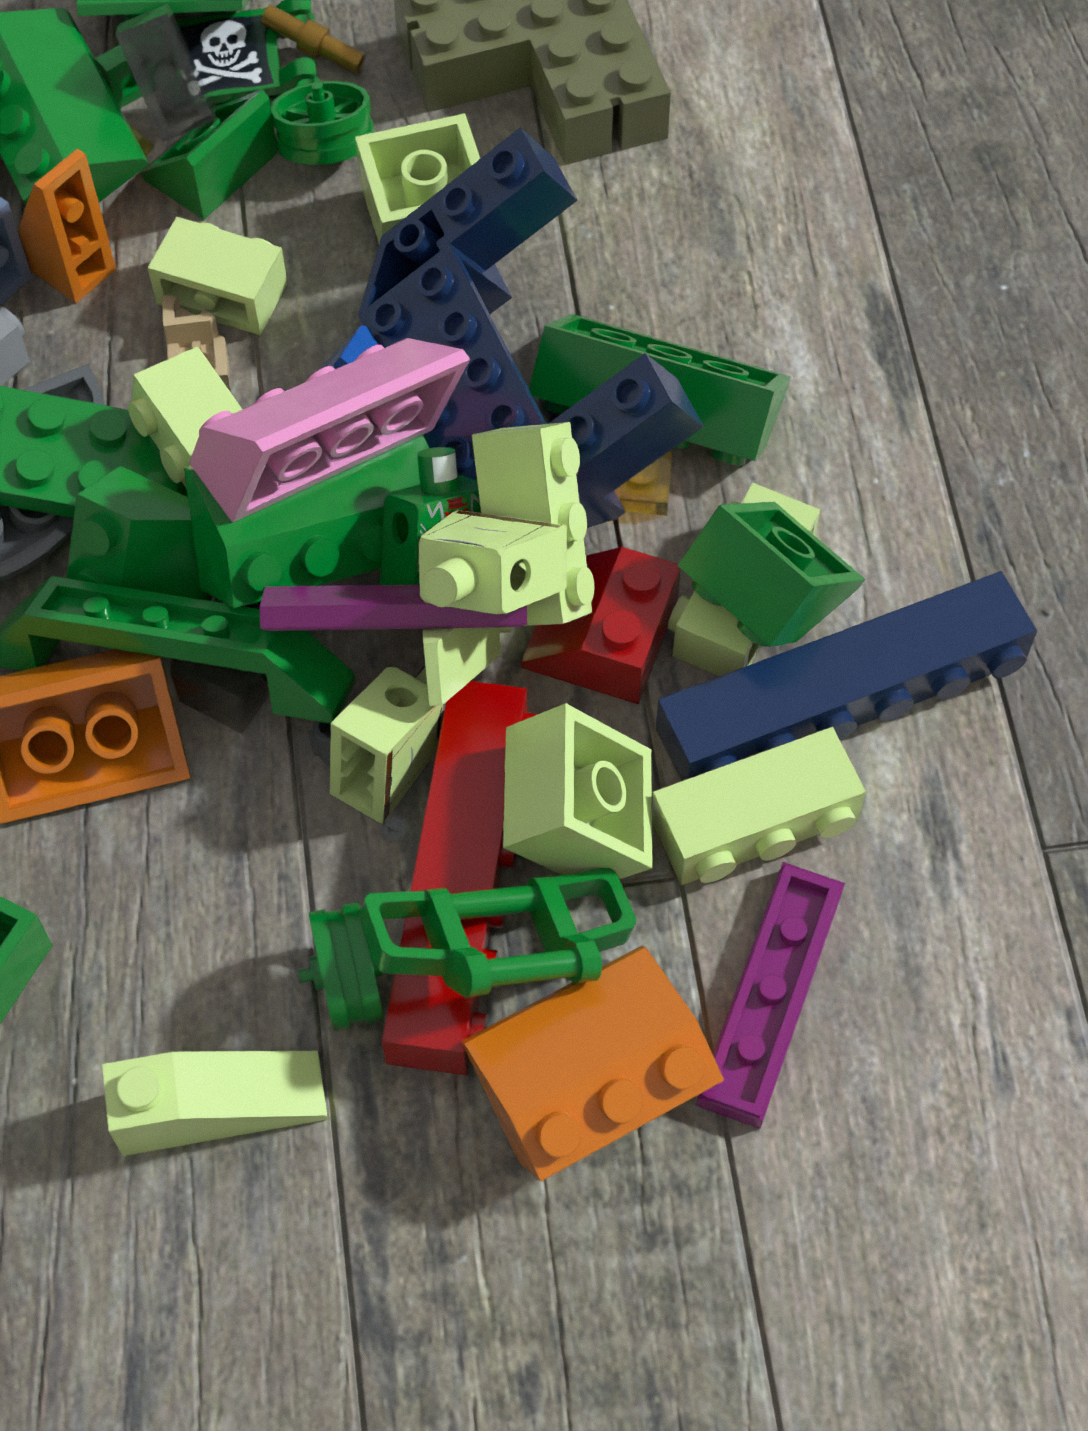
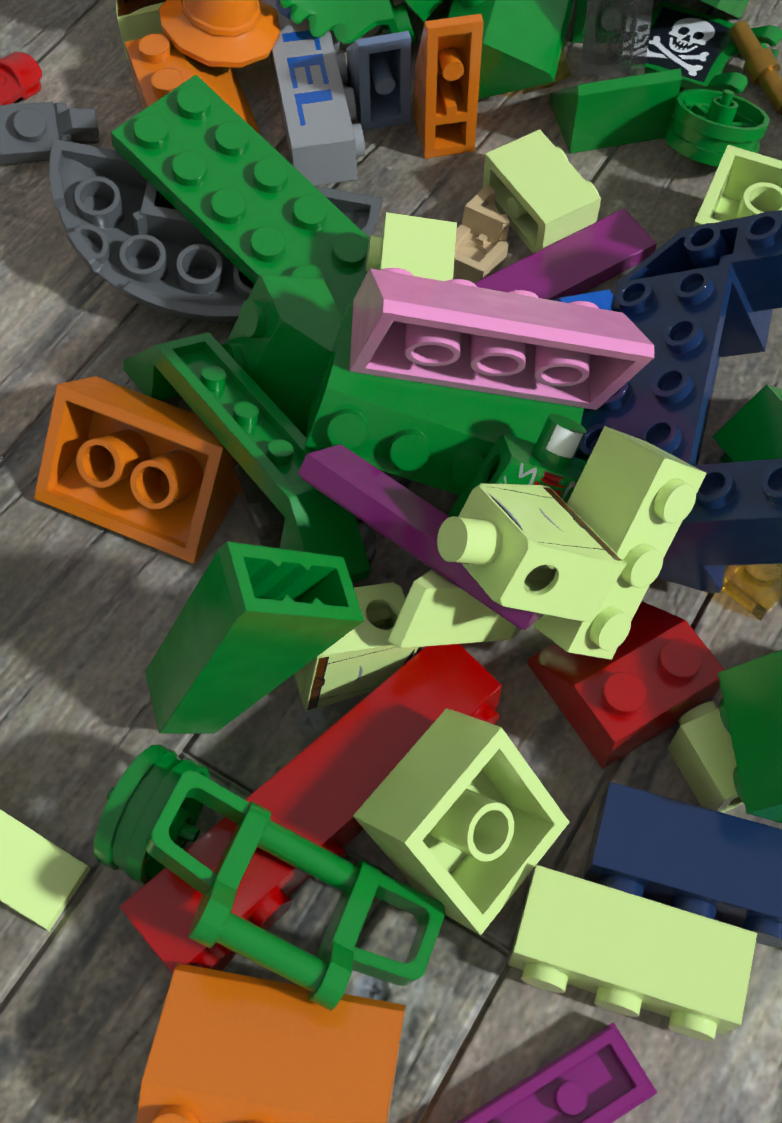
camera: 40 degrees right, 0 degrees up
(291, 324) = (578, 260): none -> magenta tile
(318, 782) = (246, 632): none -> green slope

